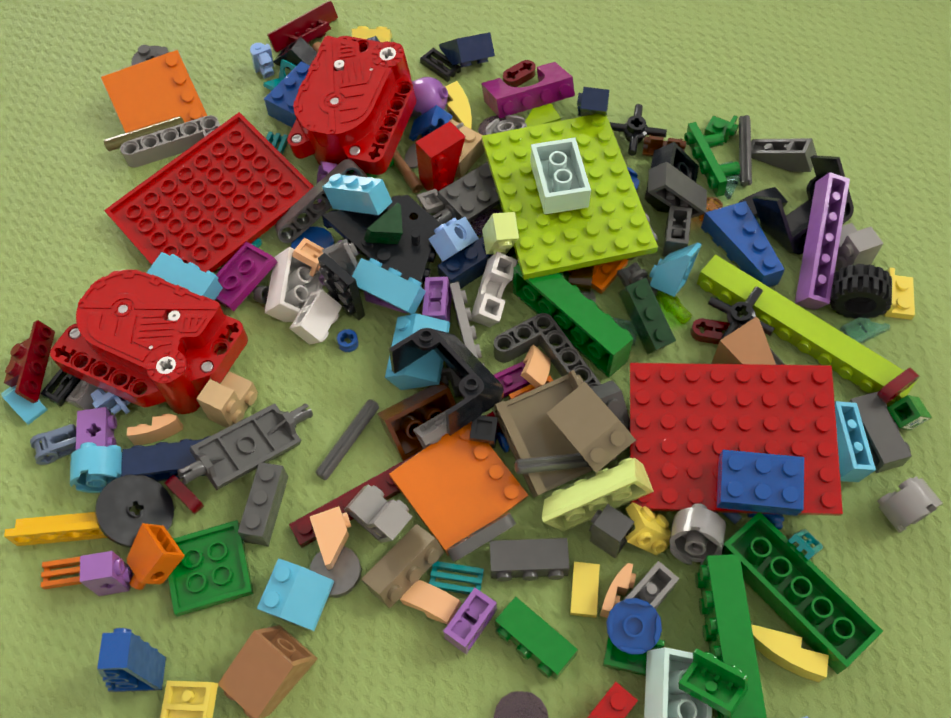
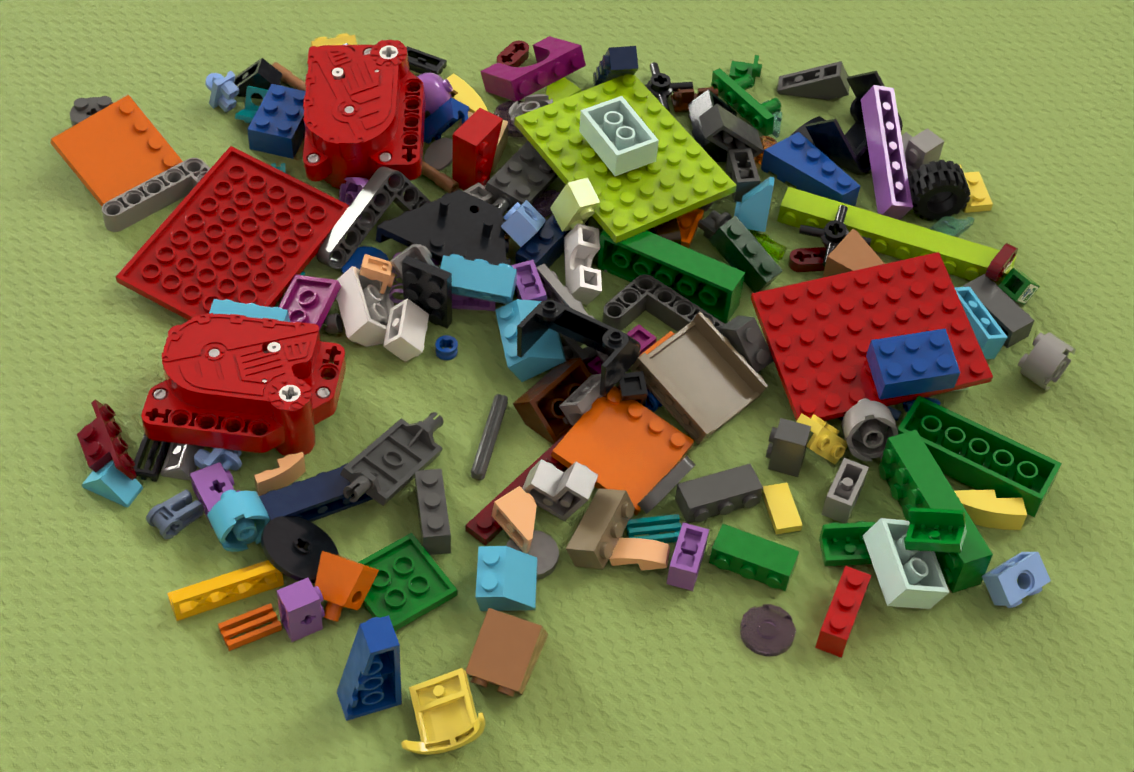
camera: 25 degrees left, 10 degrees down
(116, 141) = (95, 204): olive axle -> none
(184, 494) = (342, 525): dark red beam -> none
(227, 401) = (349, 427): tan brick -> none
(308, 26) = (259, 44): dark red bracket -> none
(357, 194) = (414, 194): medium azure brick -> none
(387, 228) = (458, 223): dark green slope -> none
(468, 49) = (451, 40): dark blue slope -> none
(536, 367) = (655, 326): light nougat slope -> none
(550, 463) = (718, 399): dark grey axle -> none
(591, 427) = (738, 356): dark tan slope -> none
(610, 486) = (754, 423): yellowish green slope -> none
(623, 580) = (812, 504): light nougat slope -> none
(634, 626) = (844, 515): blue tile -> none
(745, 150) = (777, 86): dark grey axle -> none
(806, 544) = (969, 413): teal tile -> none

